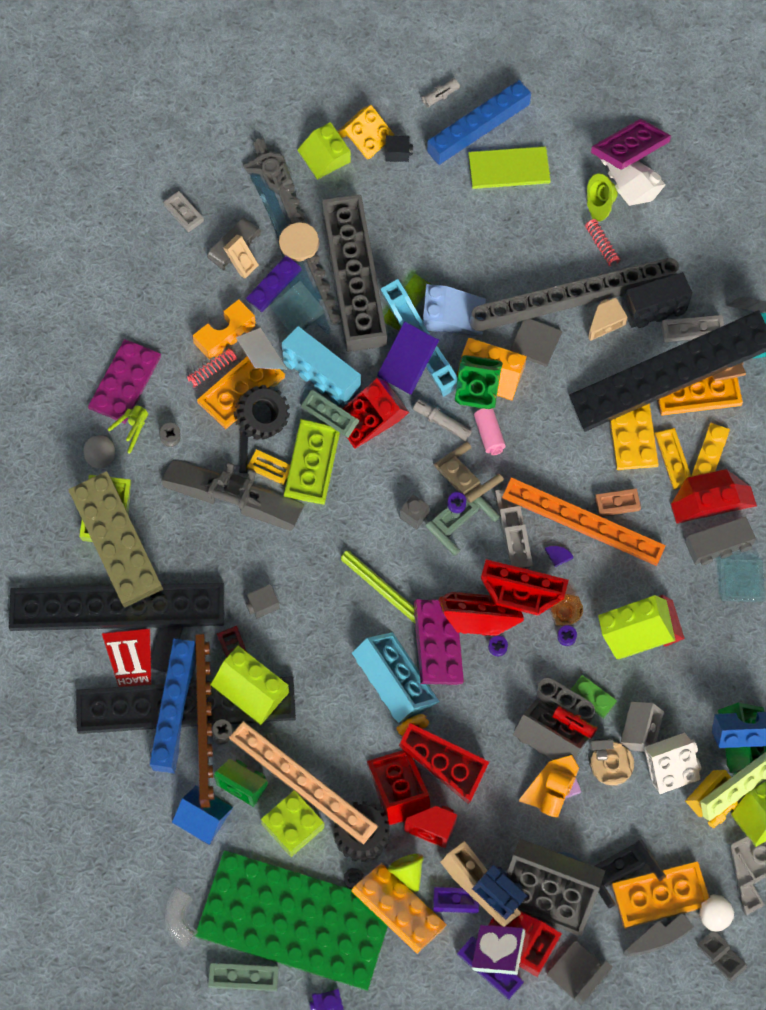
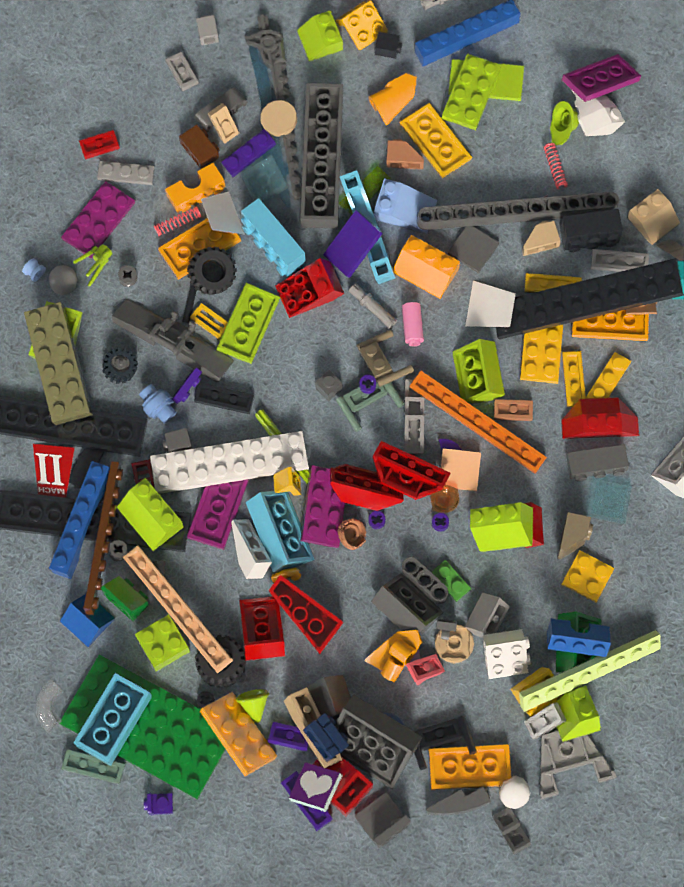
camera: 15 degrees right, 5 degrees up
(65, 446) = (33, 269): none -> light blue wheel
(109, 302) = (99, 144): none -> red plate
(144, 327) = (126, 173): none -> light grey plate
(181, 531) = (119, 365): none -> black wheel
(202, 164) = (207, 29): none -> light grey brick
(219, 286) = (199, 147): none -> reddish brown brick
(232, 564) = (157, 403): none -> medium blue piece
(256, 918) = (112, 719): none -> medium azure brick
(264, 533) = (192, 380): none -> dark purple plate
(303, 546) = (224, 398): none -> black plate
(322, 665) = (215, 513): none -> magenta plate
(324, 613) = (228, 462): none -> white plate
(330, 413) = (272, 282): sand green plate -> none
(368, 704) = (250, 551): none -> white slope
(392, 621) = (286, 481): none -> yellow slope
(416, 200) = (394, 97): none -> light orange panel
(432, 825) = (283, 668): red slope -> none
(440, 258) = (402, 155): none -> nougat slope
(470, 237) = (435, 140): none -> yellow tile
(475, 665) = (352, 533): none -> nougat hair
(478, 382) = (410, 277): green piece -> none
(491, 845) = (330, 695): none -> dark grey slope
(497, 181) = (471, 92): none -> lime plate
(567, 398) = (489, 306): none -> white sticker
(571, 468) = (478, 372): none -> lime slope
(579, 571) = (463, 468): none -> light nougat tile
(587, 729) = (418, 592): red pin -> none
(587, 796) = (425, 668): none -> coral slope
(613, 364) = (542, 282): none -> yellow tile
(715, 619) = (575, 533): none -> dark tan slope
(718, 276) = (654, 217): none -> tan slope
(731, 828) = (545, 721): none -> light grey plate
(738, 664) = (588, 576): none -> yellow plate

